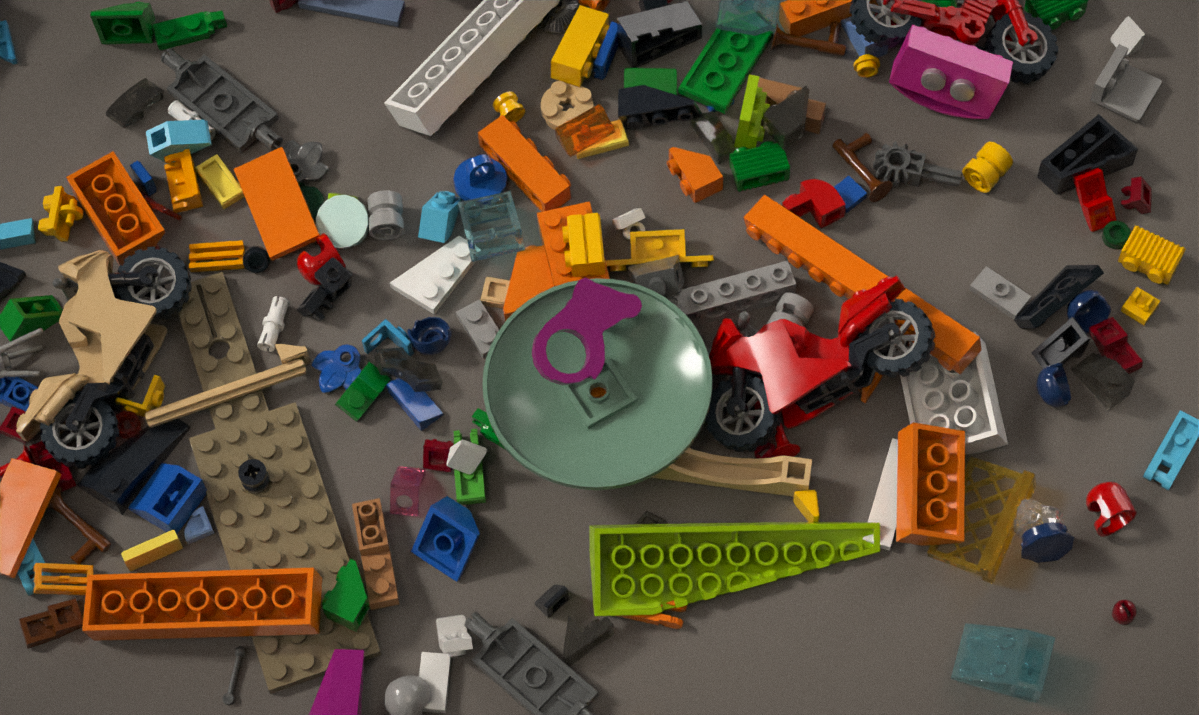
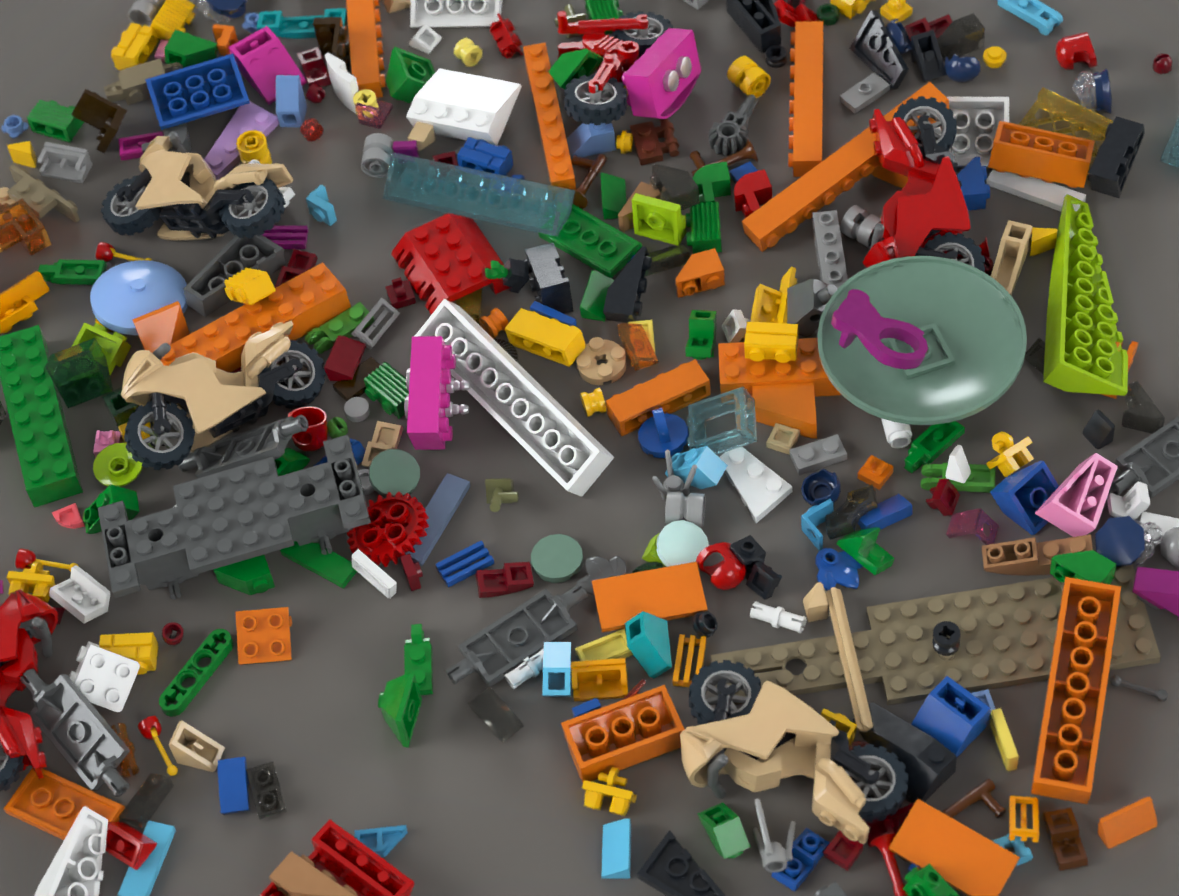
camera: 75 degrees left, 10 degrees down
(71, 679) = (1127, 822): none -> orange slope
(224, 213) = (649, 643): none -> teal slope
(288, 78) = (510, 579): none -> dark red slope
(291, 28) = (462, 561): none -> blue tile
(320, 117) = (557, 558): none -> sand green tile
(383, 53) = (500, 491): none -> olive arm
(399, 639) = (1127, 540): none -> dark blue piece
(414, 199) = (673, 482): none -> light grey plant
(448, 583) = (1081, 497): none -> bright pink wedge
(466, 386) = (875, 472): none -> orange tile
(487, 502) = (1010, 456): none -> yellow hips
(606, 191) = (701, 334): none -> green brick
(792, 69) = (613, 195): none -> green slope
(821, 155) = (713, 182): none -> green brick
(873, 90) = (647, 143): none -> copper plate
(874, 421) = (973, 185): none -> blue slope
(936, 564) = (1116, 156): none -> black wedge
(974, 233) = (807, 97): none -> orange brick
(1038, 198) = (776, 62): none -> black bush
(1089, 421) = (994, 57): none -> yellow plate

